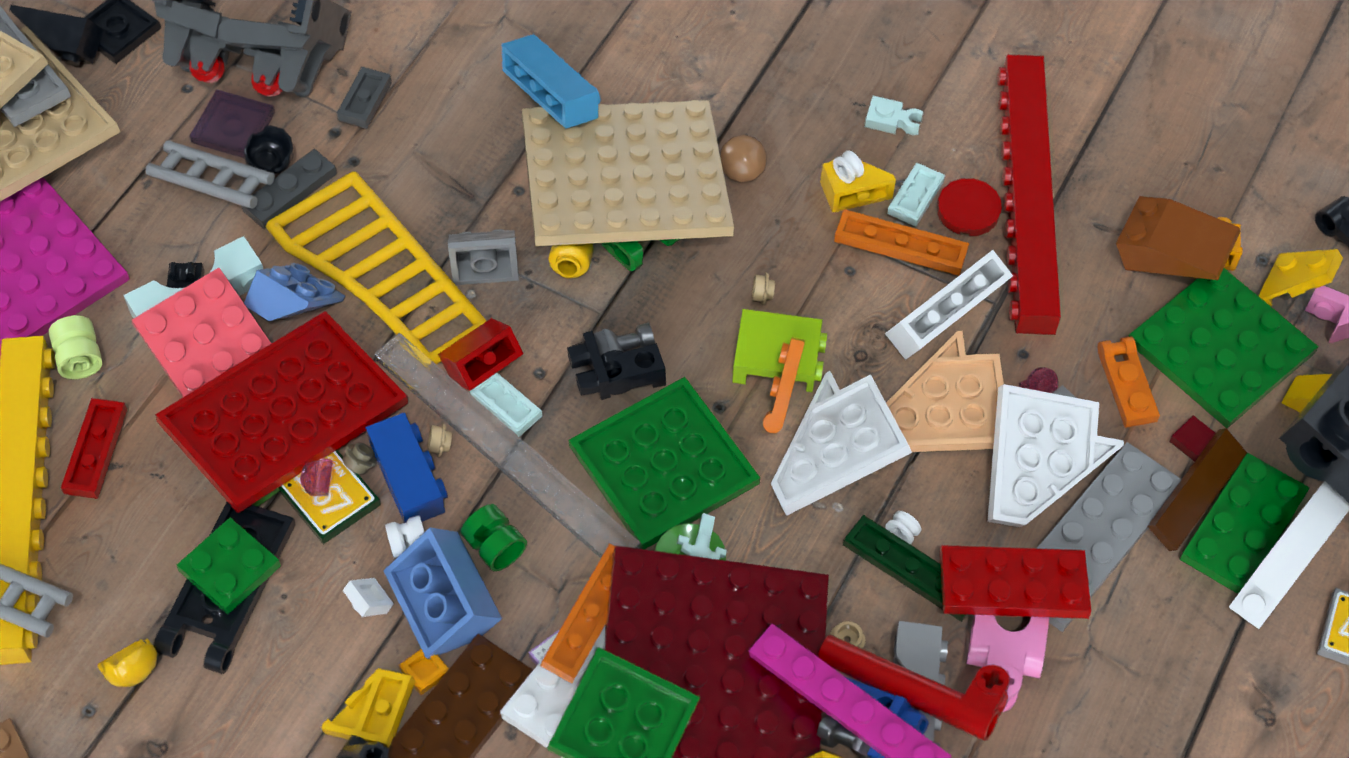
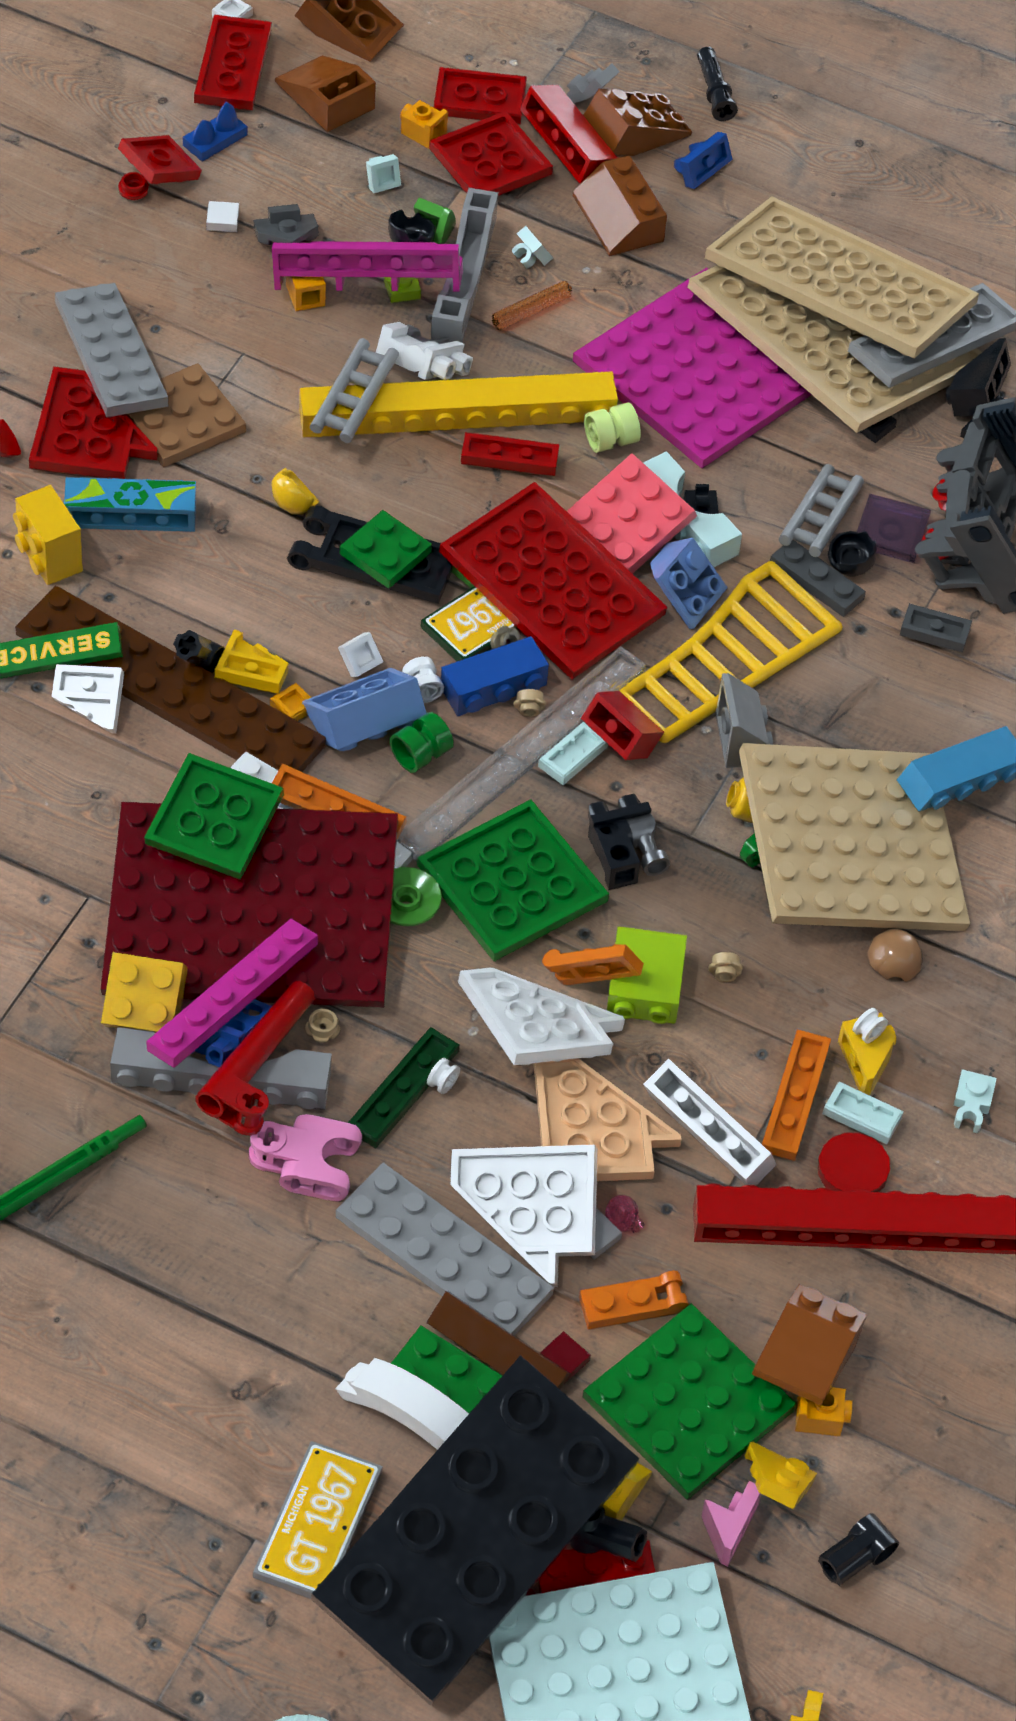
camera: 85 degrees right, 5 degrees down
(316, 477) = (477, 605): clear pink plate -> none
(703, 539) = (406, 897): light aqua piece -> none
(1015, 582) = (376, 1157): red plate -> none

